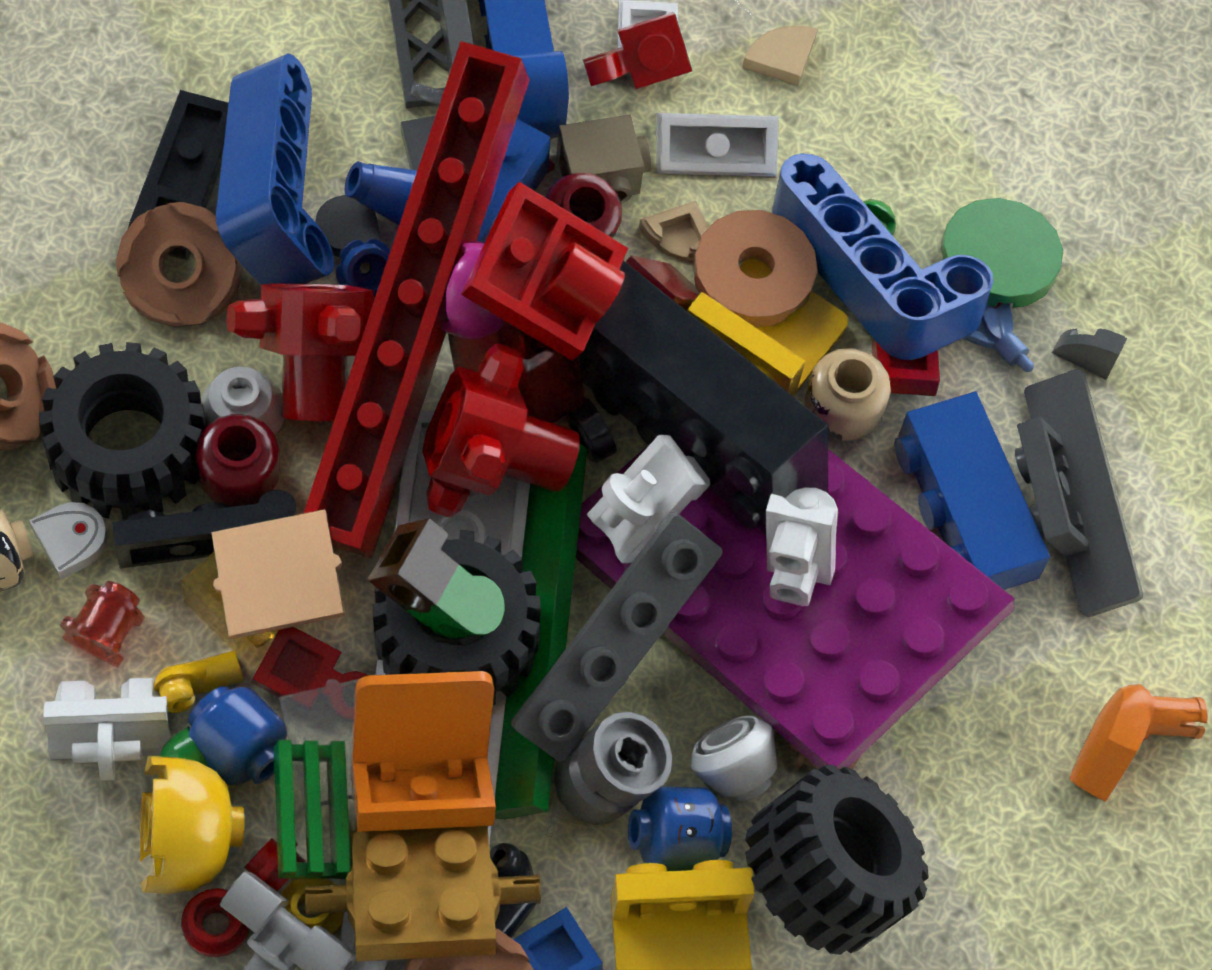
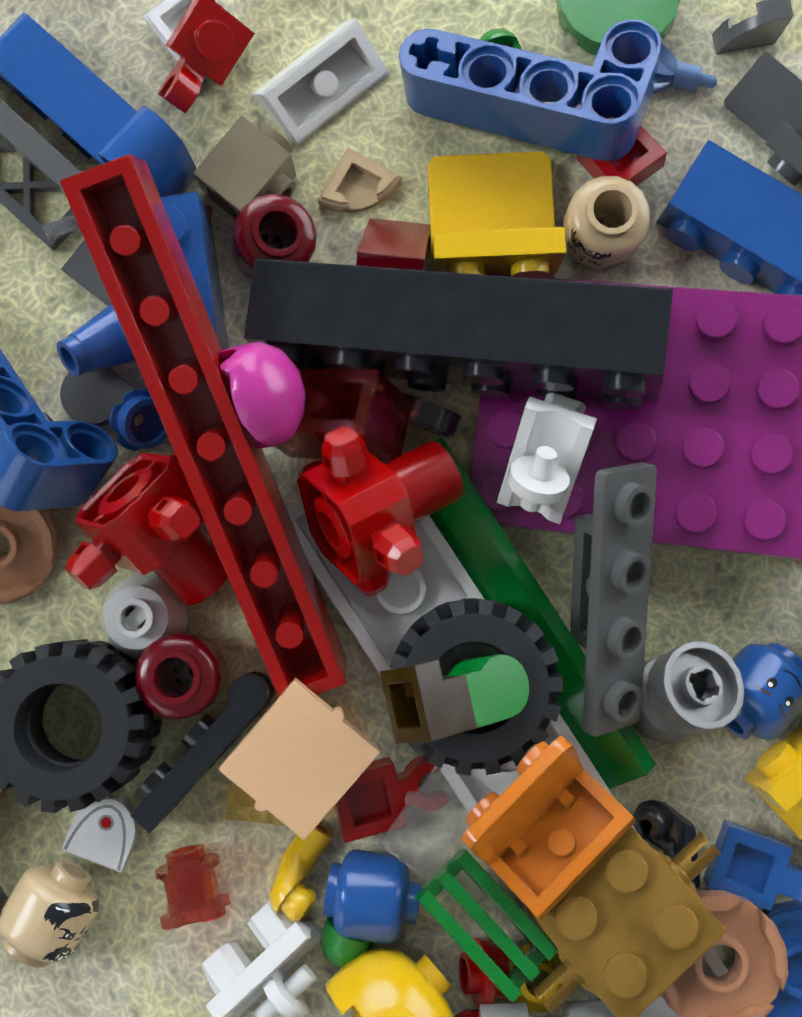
camera: 25 degrees left, 20 degrees up
(546, 271) = (316, 338): red plate -> none
(736, 758) = (755, 597): white cone -> none
(759, 237) = (445, 135): nougat tile -> none
(800, 543) = (704, 397): white hips -> none

